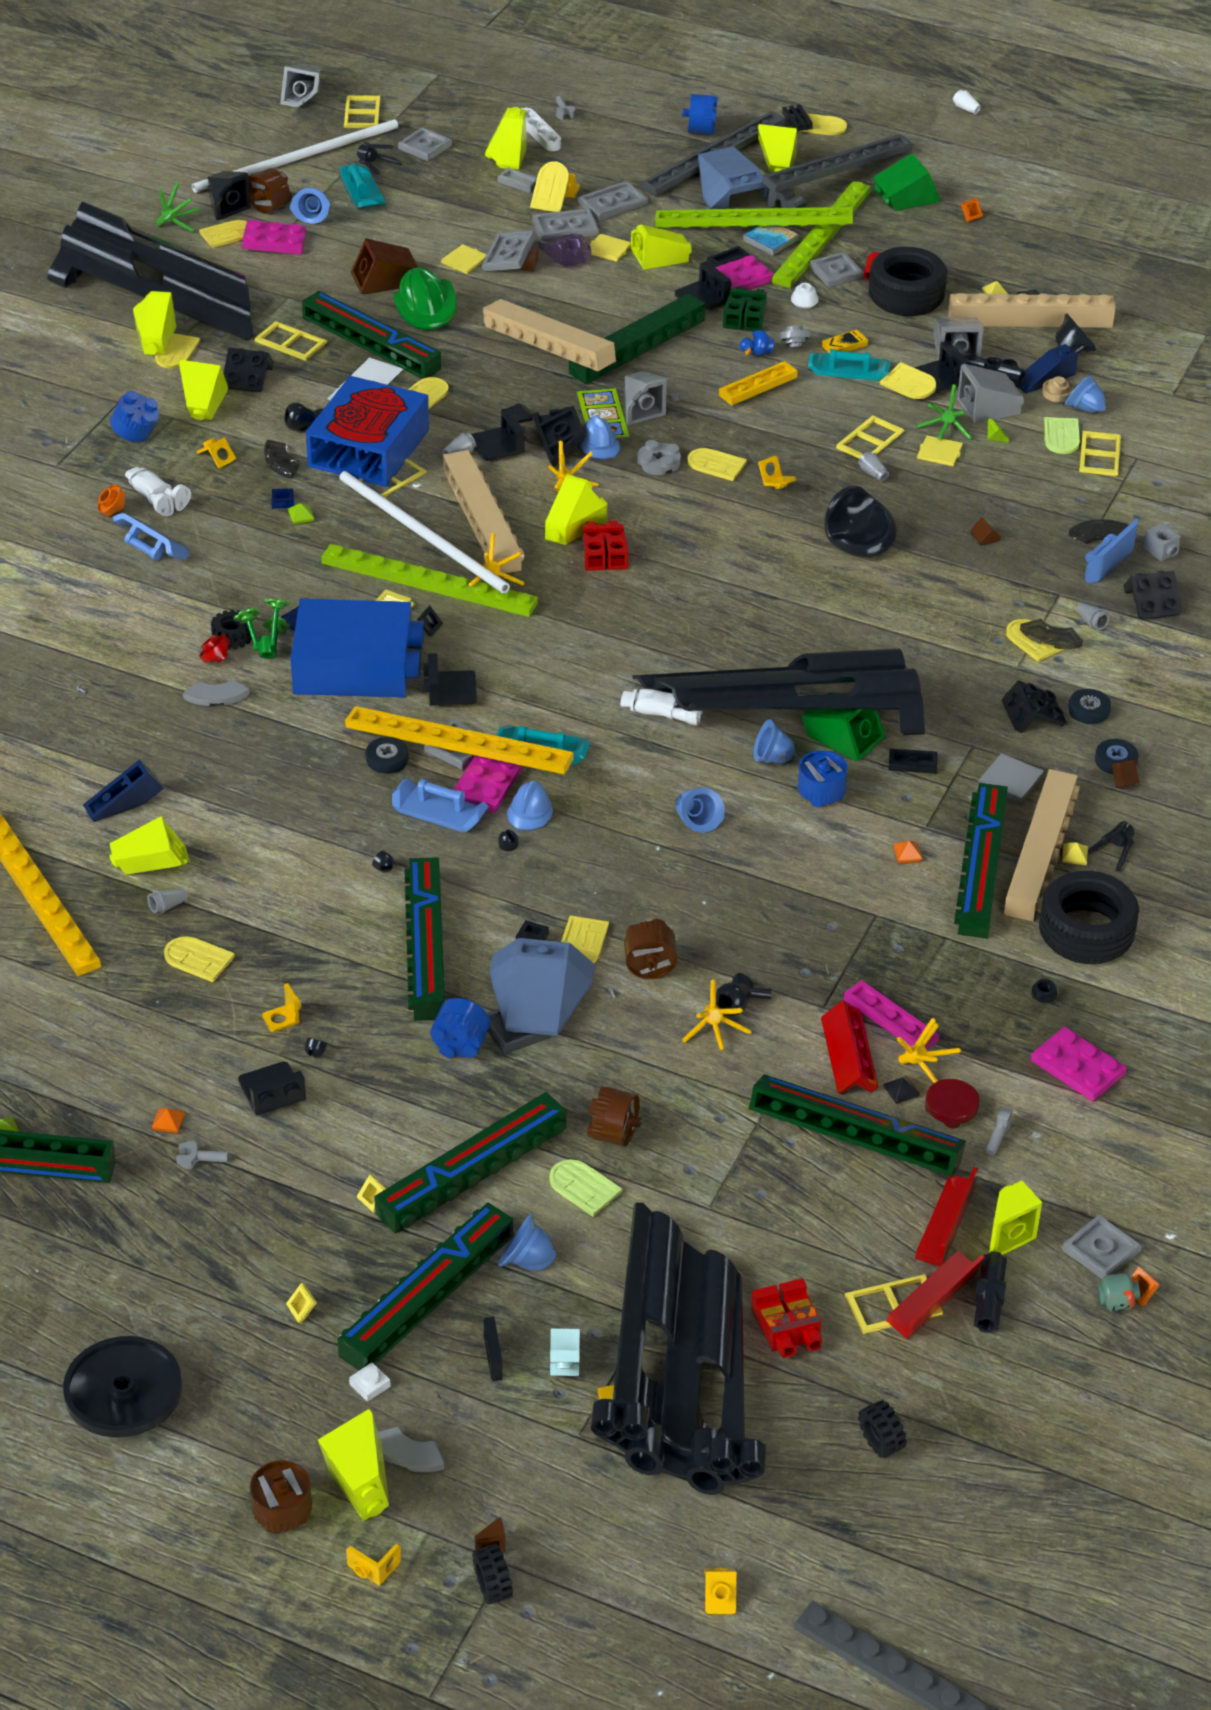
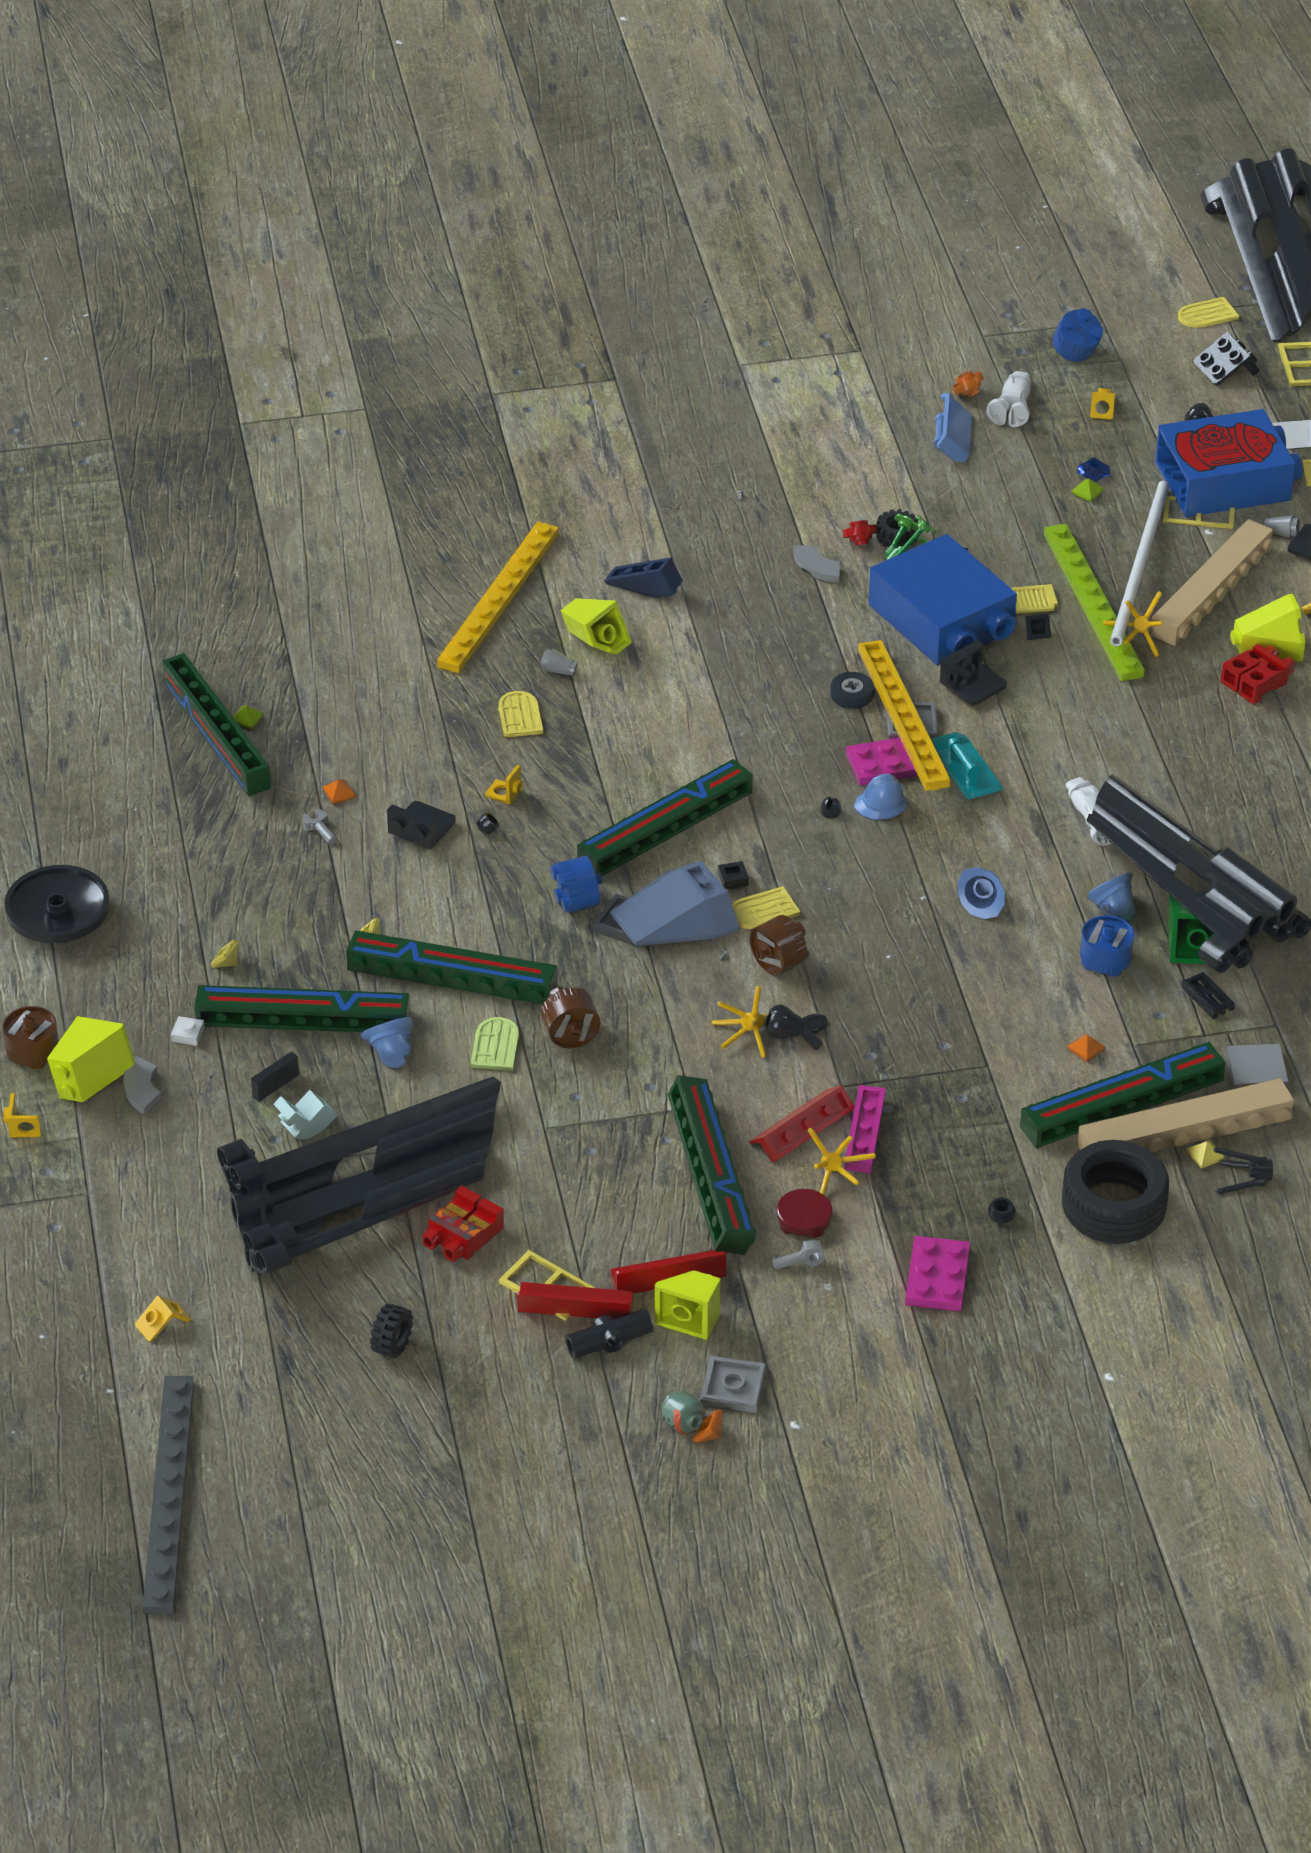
camera: 55 degrees right, 0 degrees up
(155, 322) = (1212, 281): neon yellow slope -> none
(203, 388) = (1161, 351): neon yellow slope -> none
(279, 460) = (1140, 440): clear smoke tile -> none
(383, 861) = (725, 751): black hinge -> none
(437, 805) = (824, 746): medium blue piece -> none
(491, 1535) = (94, 1168): reddish brown slope -> none
(492, 1574) = (55, 1181): black tyre -> none
(901, 1089) = (791, 1177): black slope -> none

